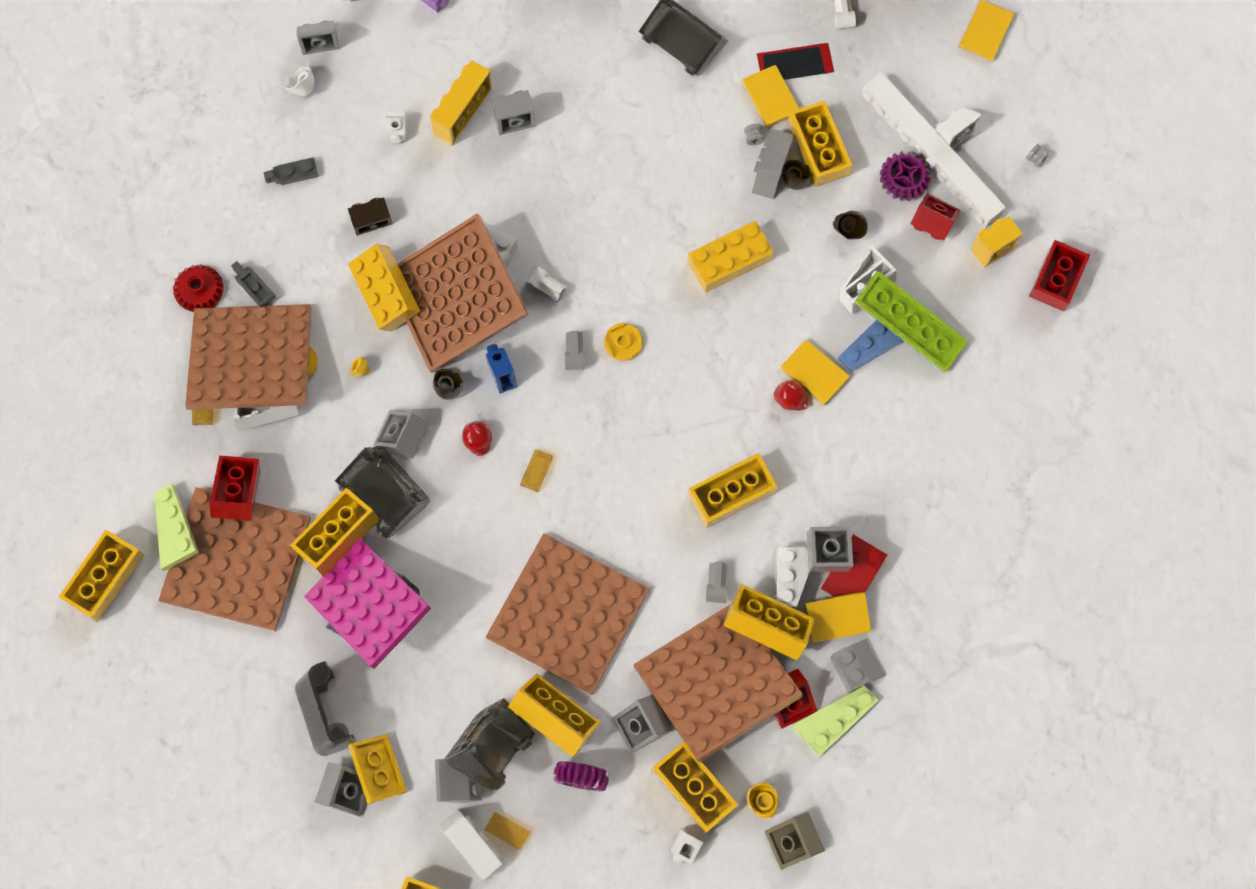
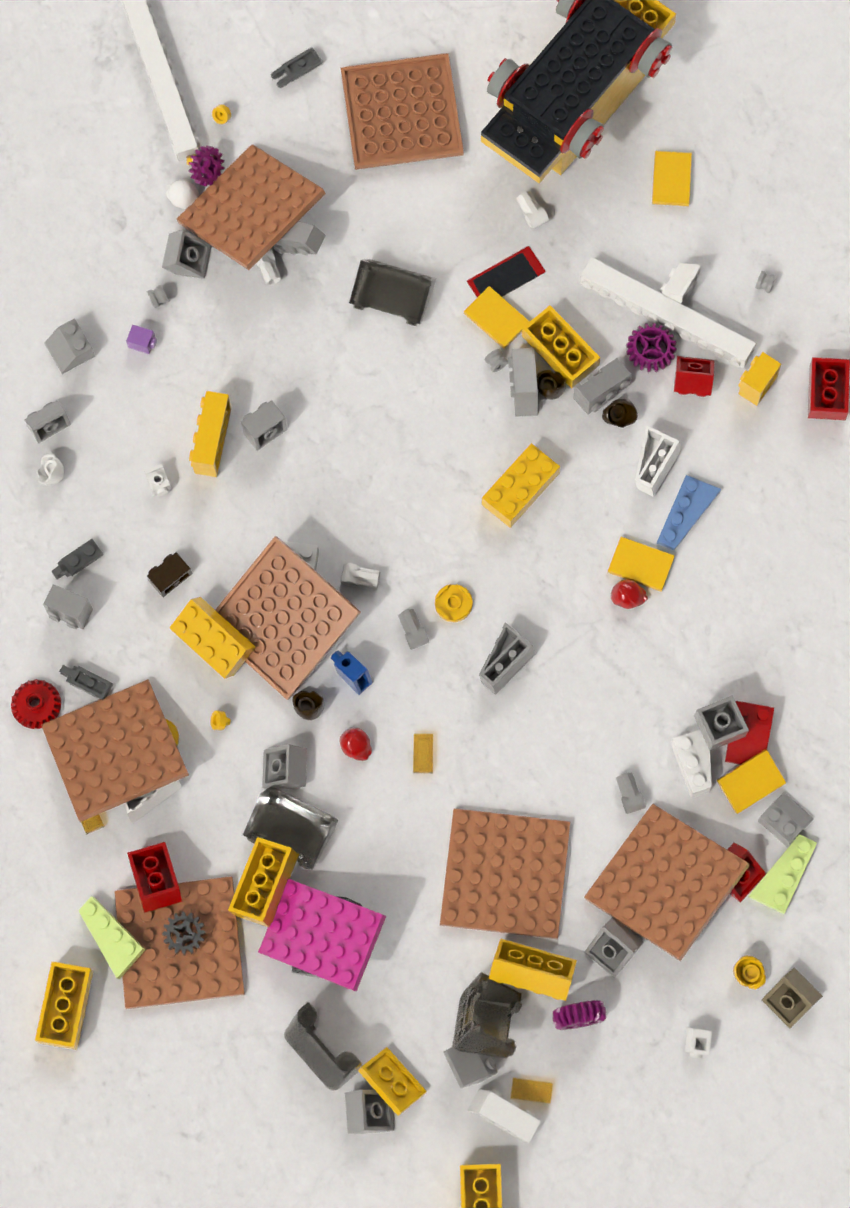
camera: 15 degrees left, 0 degrees up
(235, 557) = (187, 924): none -> dark grey gear
(263, 210) = (67, 607): none -> light grey brick
(650, 412) = (506, 659): none -> light grey wedge
(694, 787) = (684, 985): yellow brick -> none
(732, 490) = (610, 702): yellow brick -> none
(769, 622) = (692, 810): yellow brick -> none
(843, 194) = (602, 386): none -> light grey wedge
(911, 321) = (711, 483): lime plate -> none

